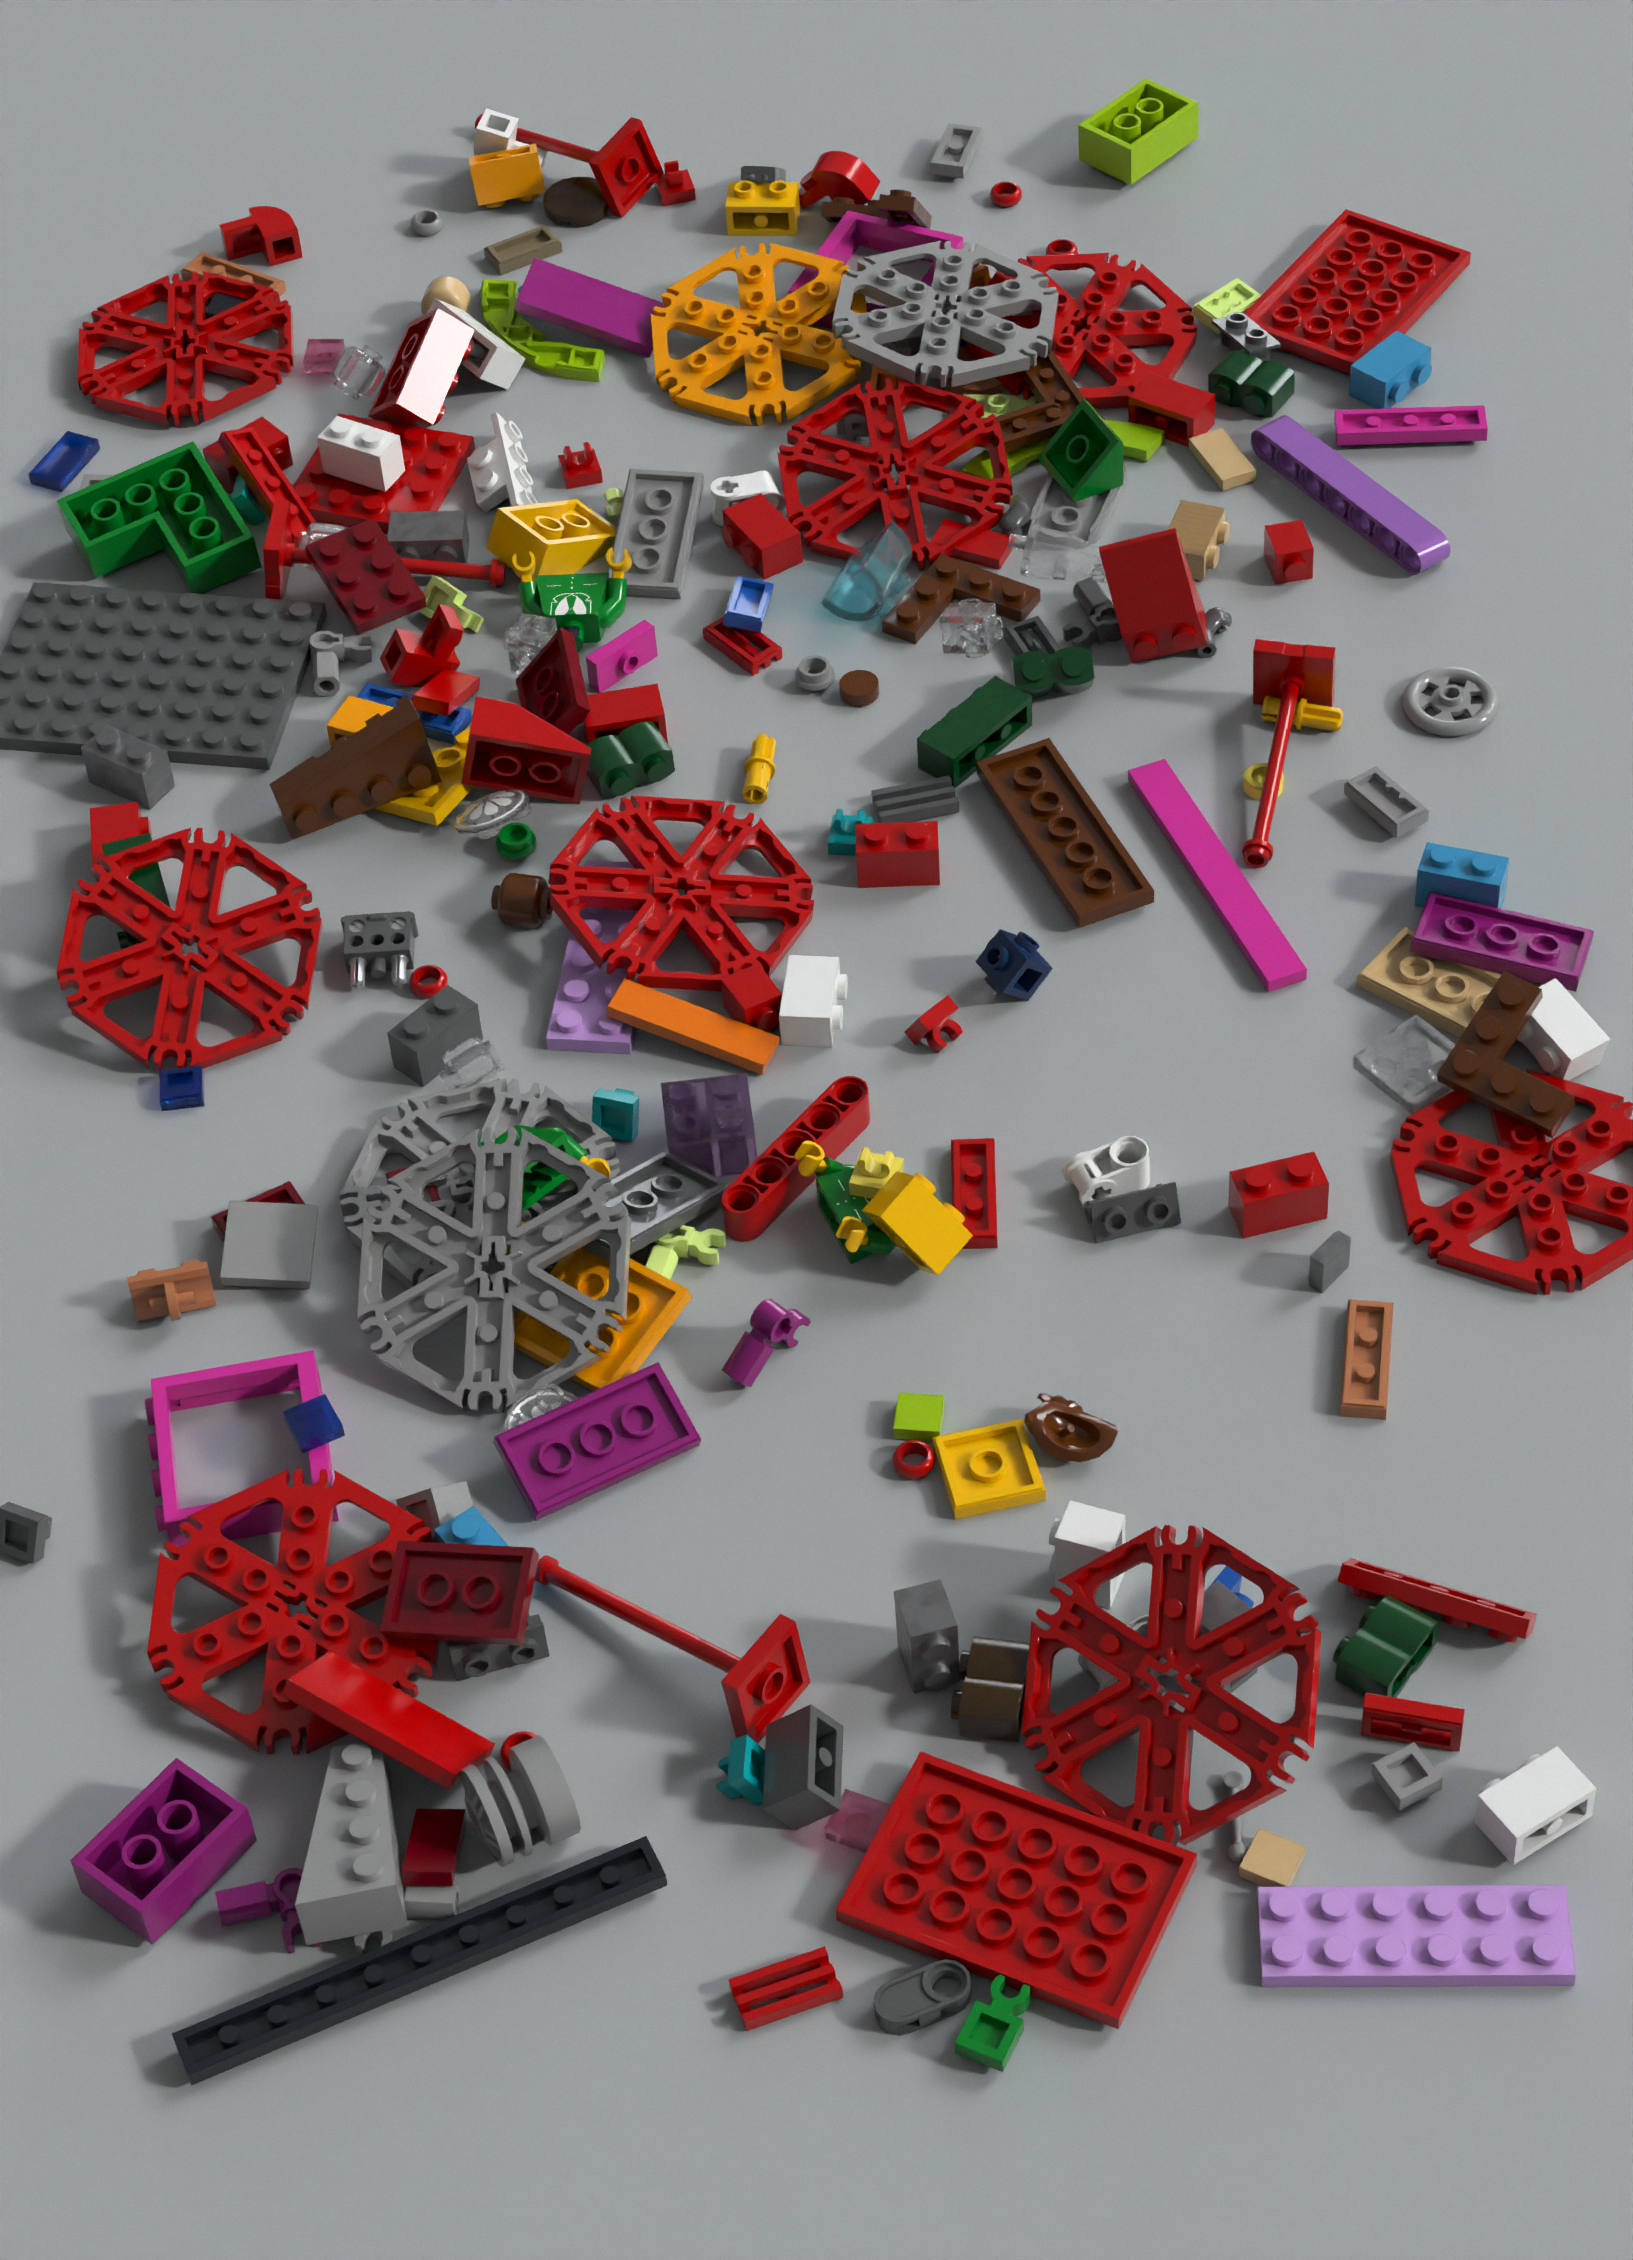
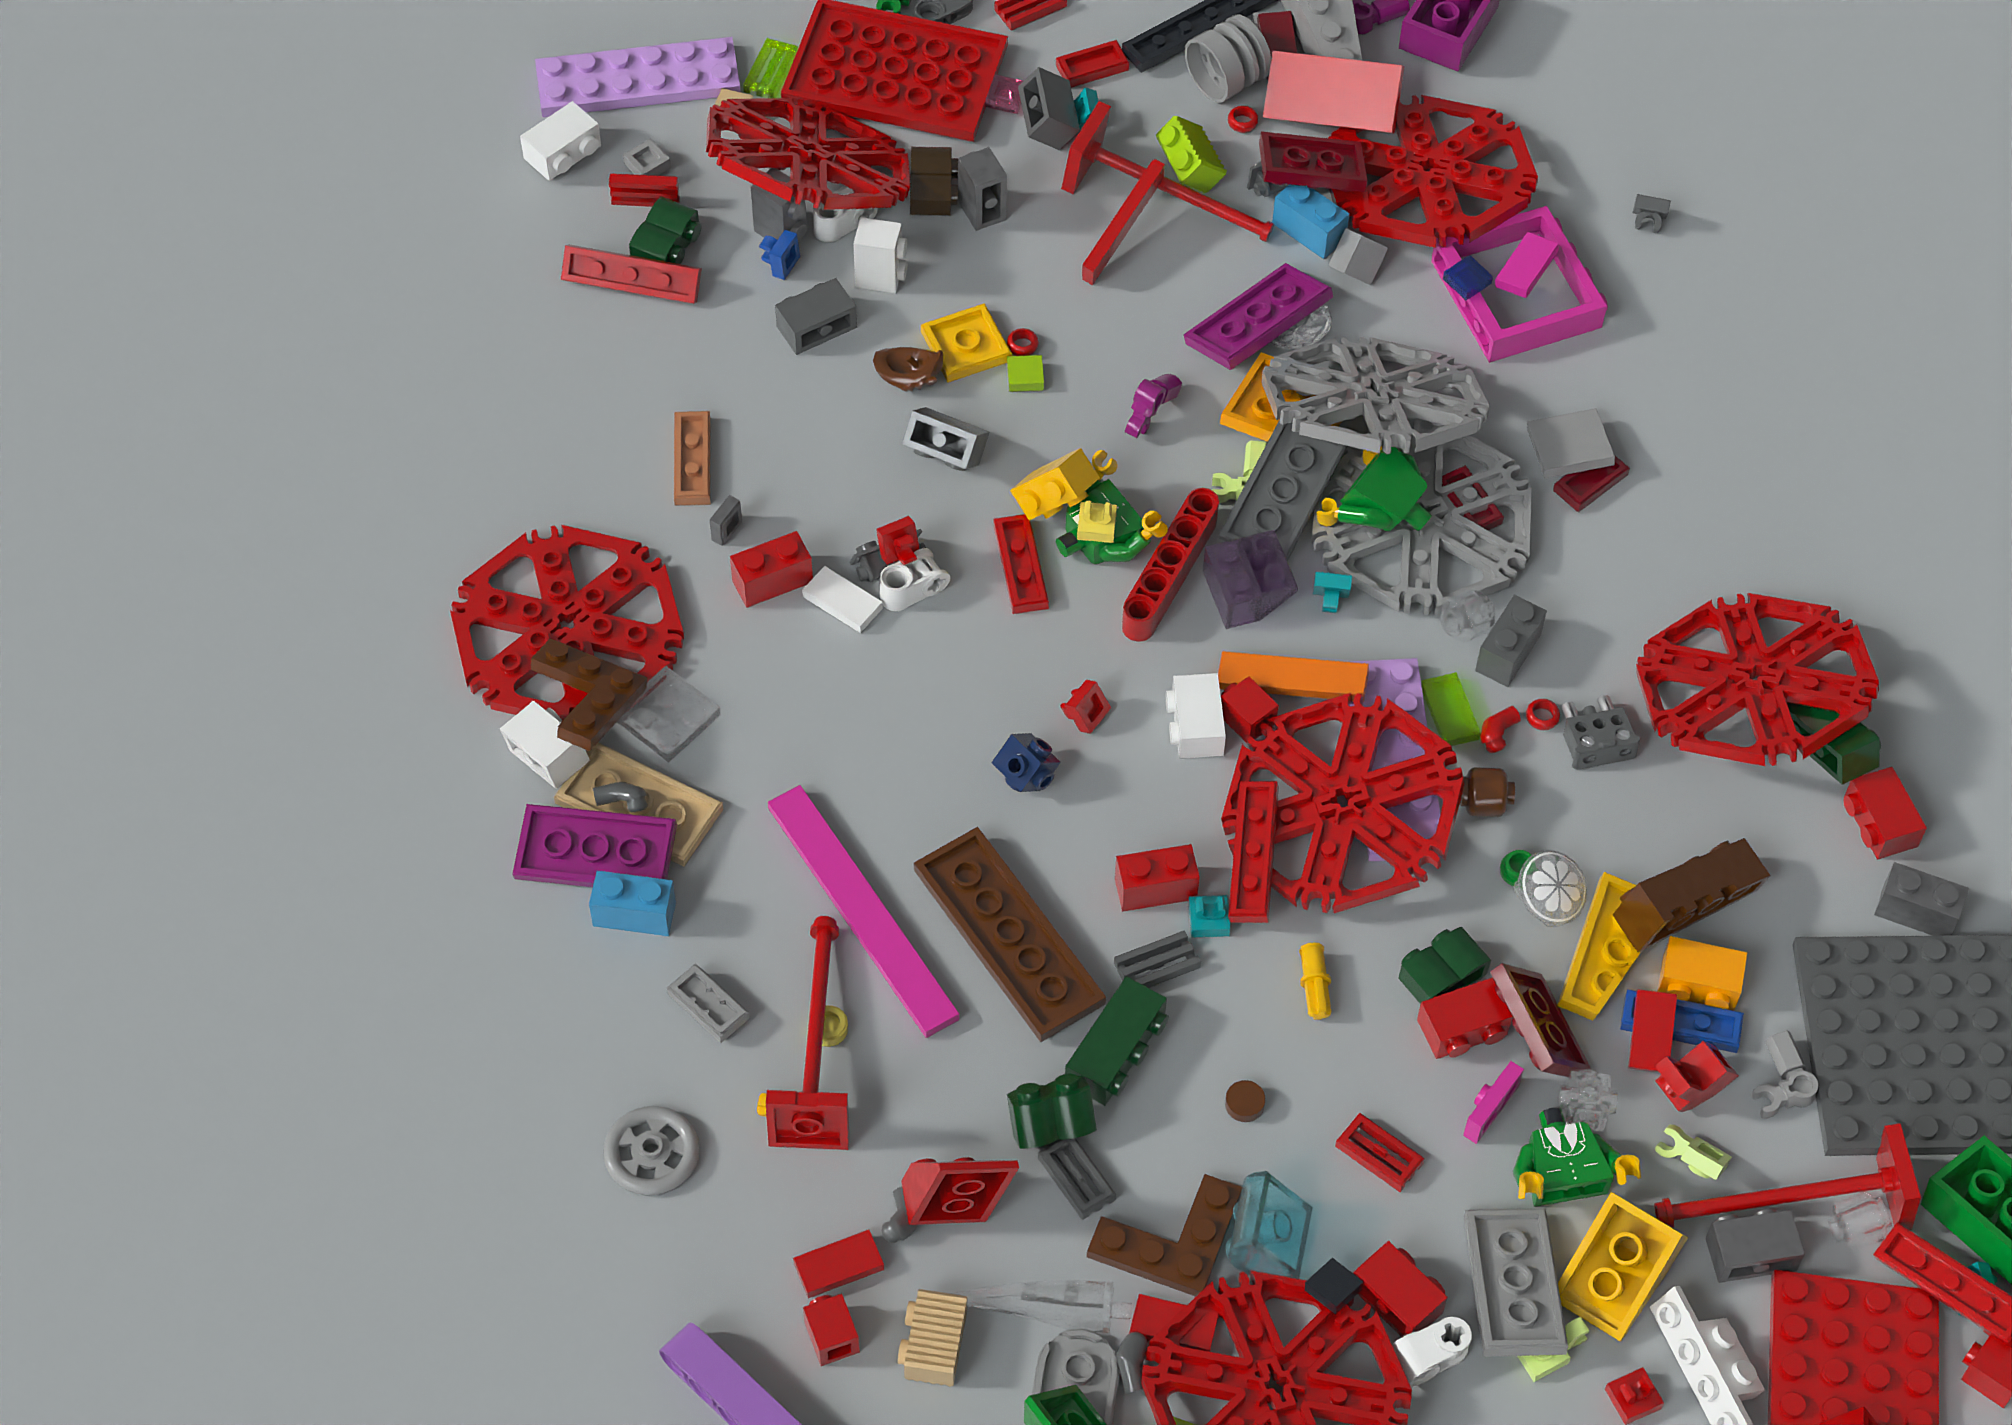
camera: 165 degrees right, 10 degrees up
(171, 1290) = (1617, 403): nougat hips -> none
(182, 1088) = (1709, 585): clear blue tile -> none
(229, 1431) = (1526, 265): none -> dark pink tile
(361, 453) = (1872, 1330): white brick -> none
(365, 576) = (1793, 1158): dark red plate -> none
(487, 970) = (1494, 728): none -> red arm
(523, 752) = (1538, 914): red slope -> none
(527, 995) = (1450, 709): none -> clear neon green tile
(618, 1674) = (1190, 154): none -> lime brick
(716, 1872) = (1092, 63): none -> red tile
(741, 1567) = (1123, 221): none -> red tile
(748, 604) = (1386, 1191): blue tile -> none
(789, 863) = (1253, 852): none -> red tile
(814, 673) = (1297, 1101): light grey plate -> none
(821, 533) = (1333, 1285): none -> black tile
(970, 628) = (1159, 1164): clear brick -> none
(1039, 1317) = (945, 438): none -> dark grey brick
(1102, 619) = (1011, 1216): dark grey bar -> none
(1119, 1175) = (898, 541): none -> red tile
(1189, 1497) = (816, 316): none -> dark grey brick
(1190, 1957) = (776, 84): none -> clear neon green tile
(1192, 1171) = (842, 599): none -> white tile
(1275, 605) = (838, 1263): none -> red tile
(1467, 976) = (621, 791): none -> dark grey arm

